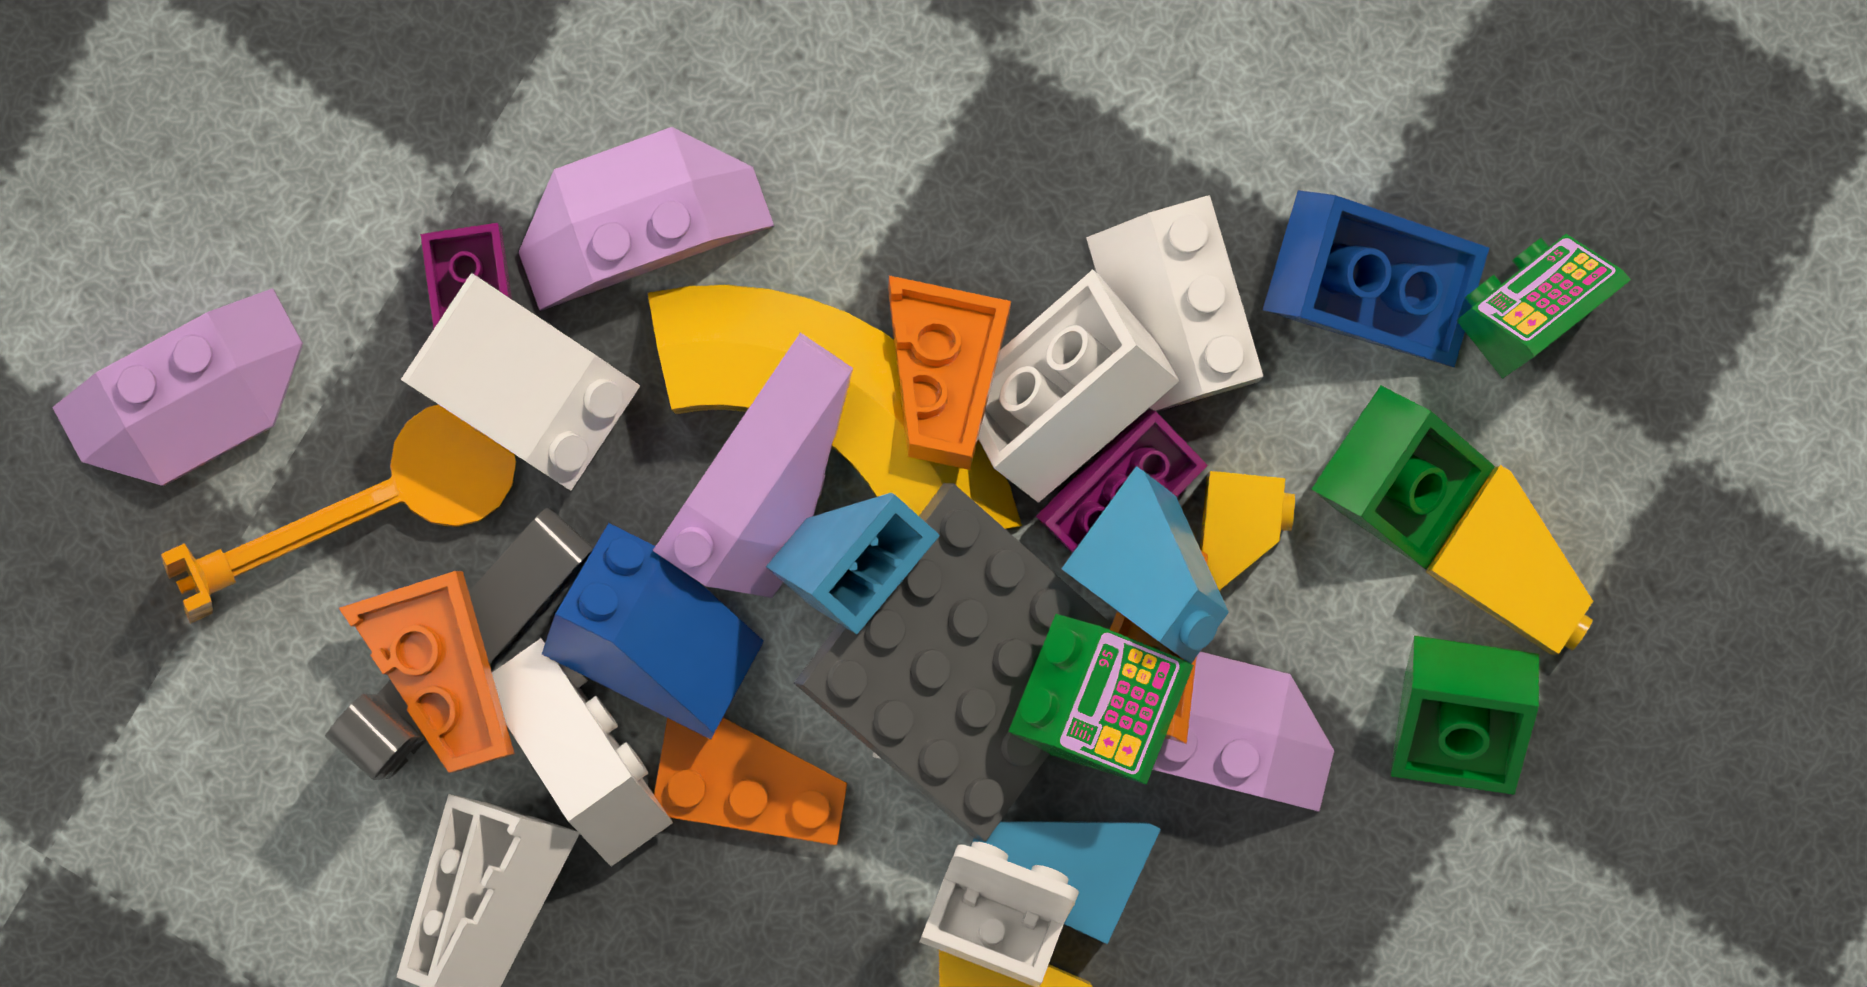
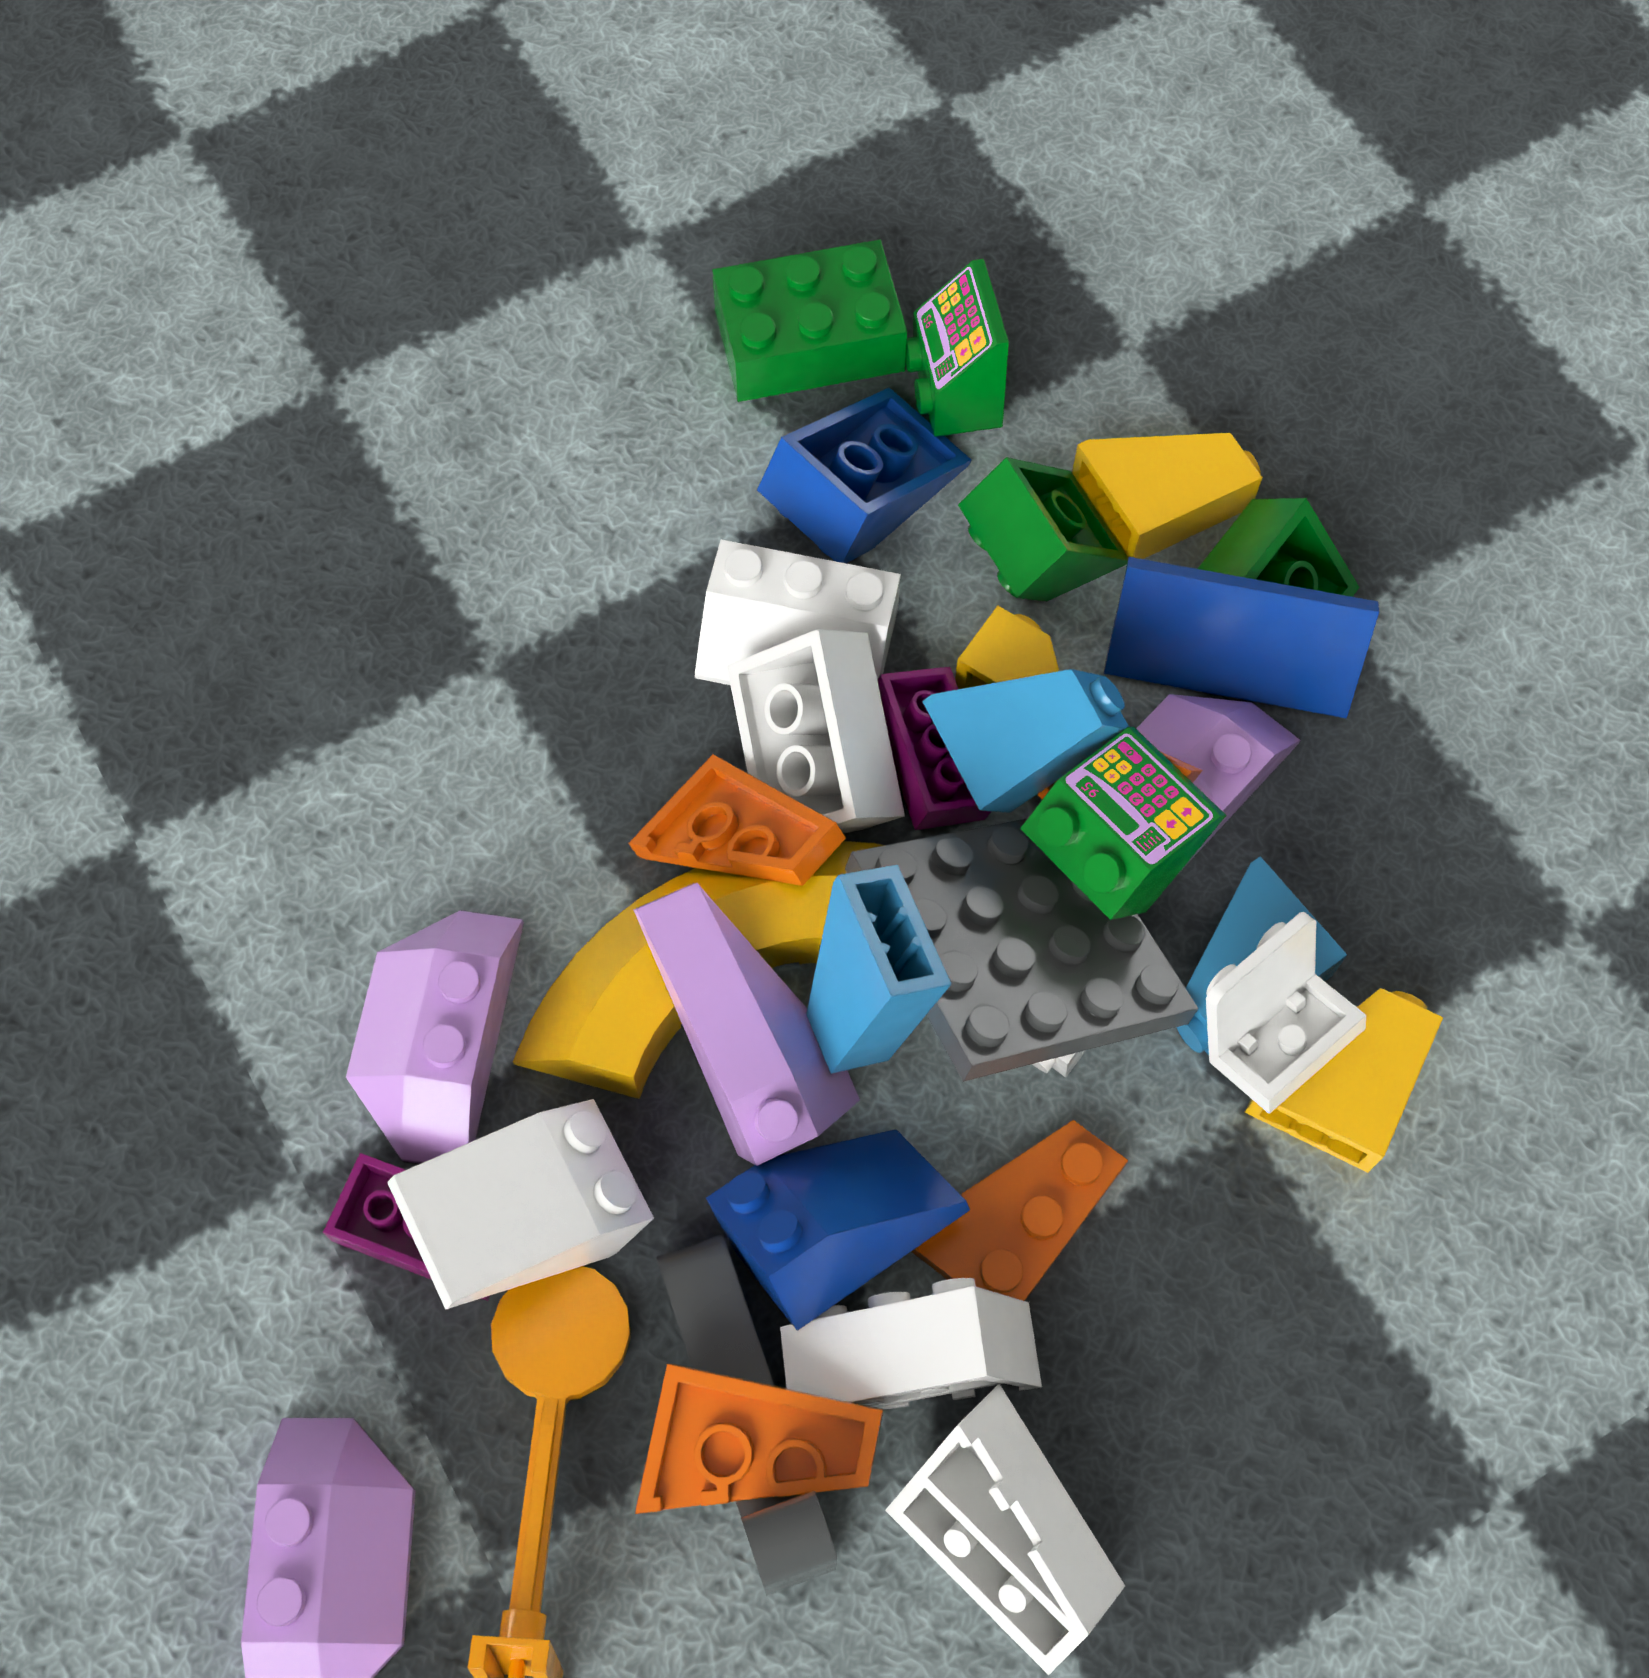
camera: 65 degrees left, 20 degrees down
(1373, 711) = (1240, 637): none -> blue tile
(1512, 134) = (809, 320): none -> green brick

